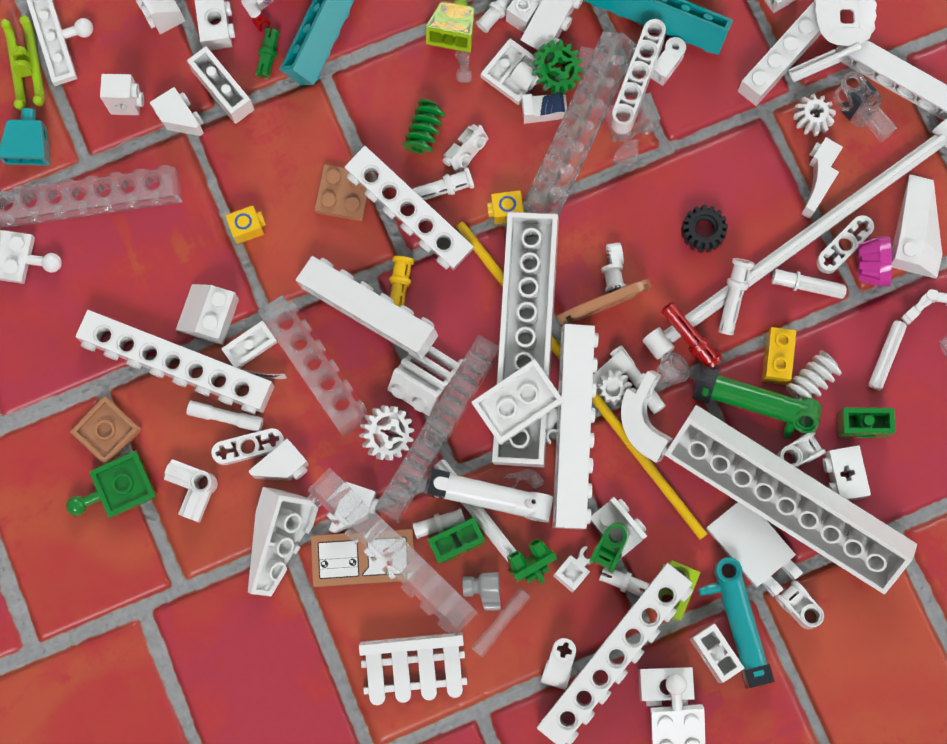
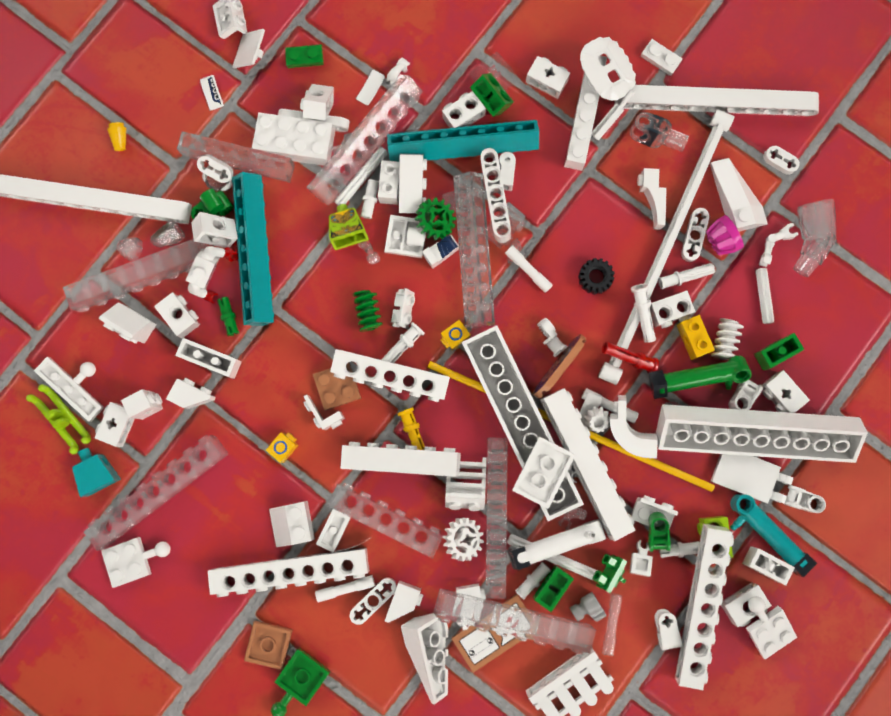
camera: 25 degrees left, 5 degrees up
(75, 113) = (108, 432): none -> white brick
(189, 477) = (359, 656): white piece -> none
(317, 225) = (333, 421): none -> white bracket
(627, 165) = (520, 260): none -> white piece
(673, 369) = (630, 386): clear cone -> none
(769, 304) = (669, 305): none -> white brick
(818, 107) = (627, 149): white gear -> none
(918, 29) = (661, 57): none -> white plate

